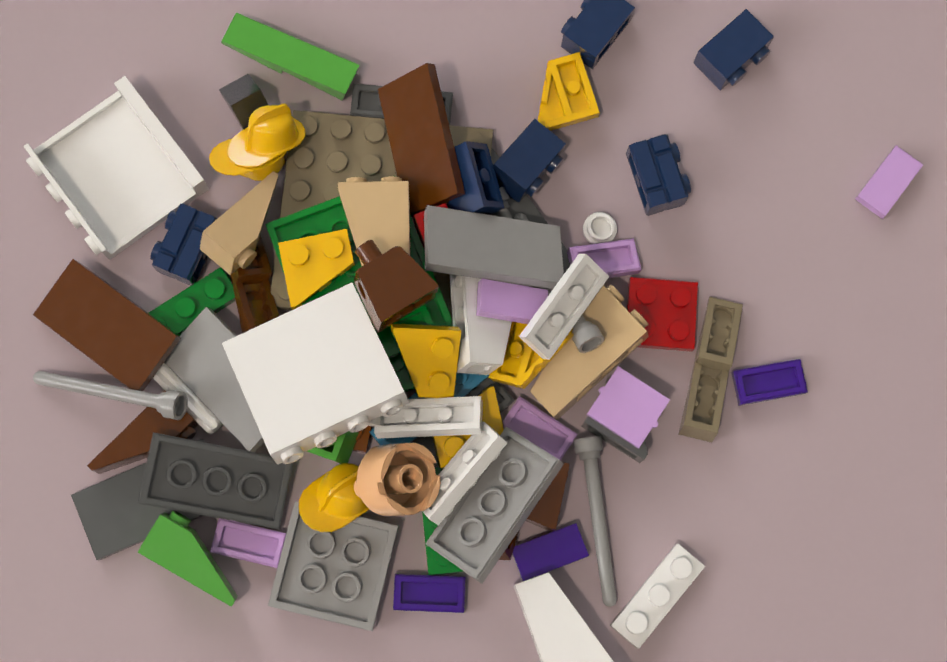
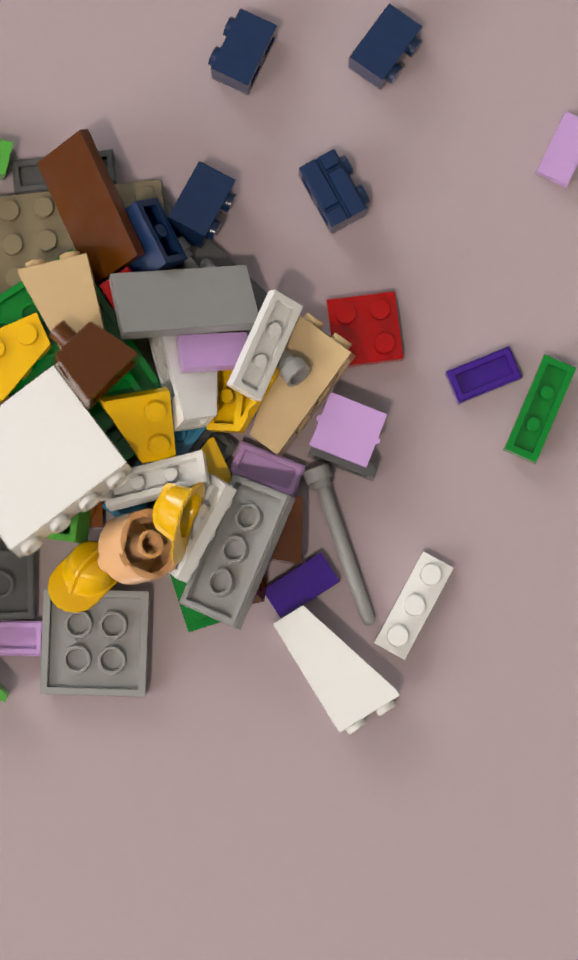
camera: 10 degrees left, 5 degrees up
(429, 593) = (193, 649): dark purple tile -> none
(442, 453) = (175, 515): none -> yellow piece
(566, 94) = (226, 127): yellow wing -> none
(599, 228) = (287, 257): white plate -> none
(613, 257) = (302, 285): lavender tile -> none
(711, 370) = (424, 374): dark tan slope -> none
(819, 426) = (539, 409): none -> green plate

